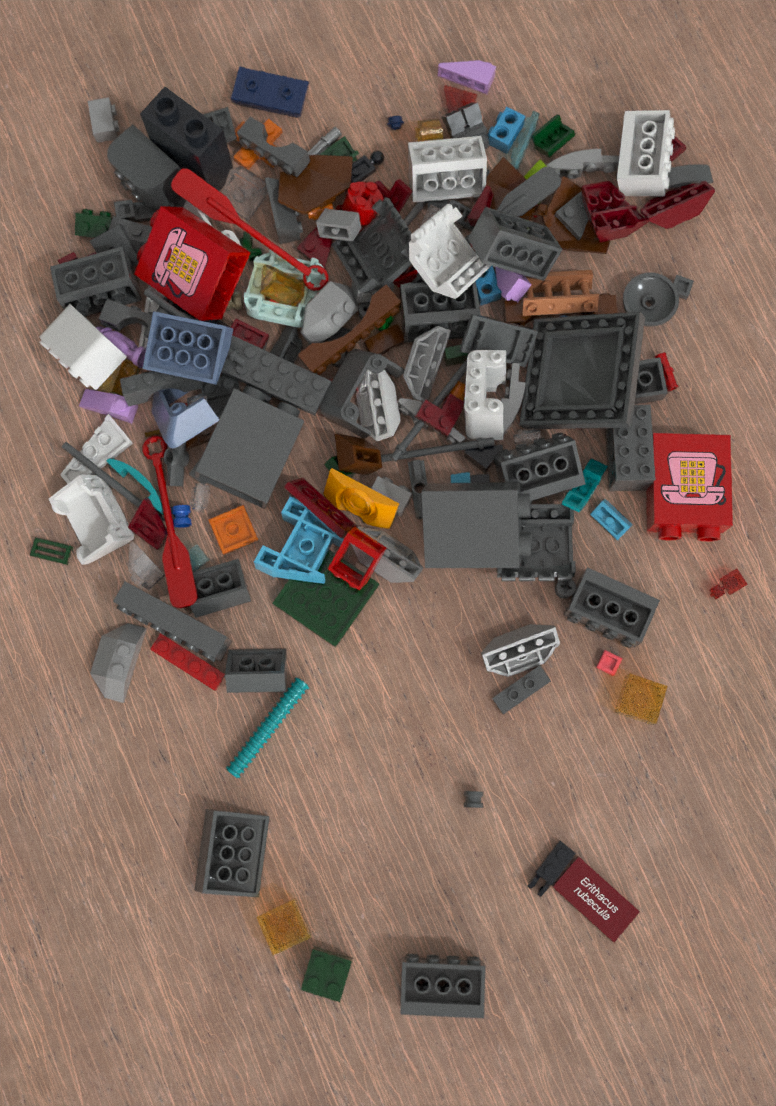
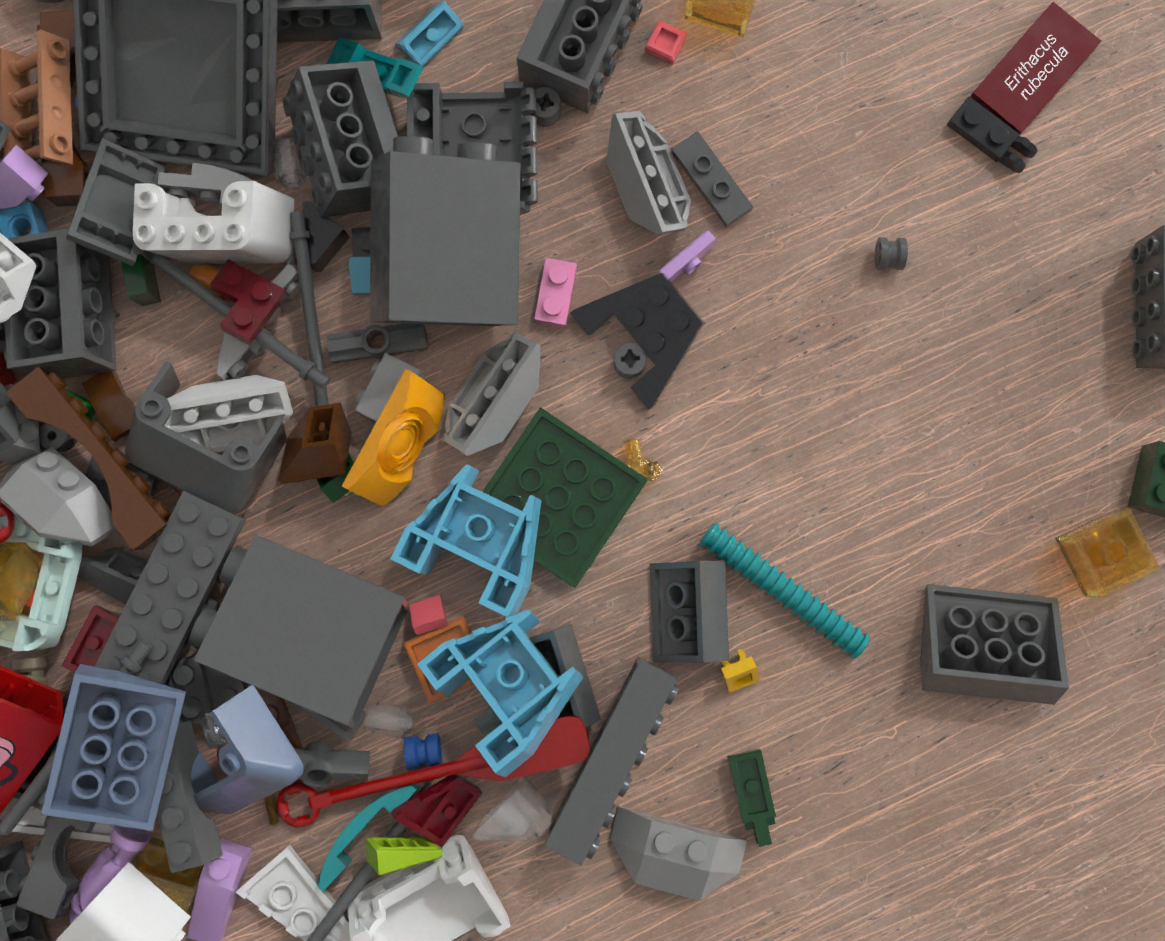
camera: 90 degrees left, 5 degrees up
(125, 503) = (397, 853): none -> lime slope
(149, 706) = (753, 793): none -> dark green hinge
(187, 662) = (676, 730): red plate -> none
(217, 563) = (512, 681): none -> medium azure wedge
(219, 699) = (739, 673): none -> yellow tile
(259, 519) = (428, 615): none -> coral tile
(320, 506) = (408, 507): dark red tile -> none
(344, 644) = (641, 464): none -> clear yellow arm
(365, 544) = (477, 424): red window -> none
(405, 639) = (629, 367): none -> dark grey wheel
(425, 362) = (150, 329): light grey wedge -> none
(428, 654) = (656, 320): none -> black wing
(450, 594) = (555, 292): none -> bright pink plate
(469, 673) = (690, 257): none -> lavender plate

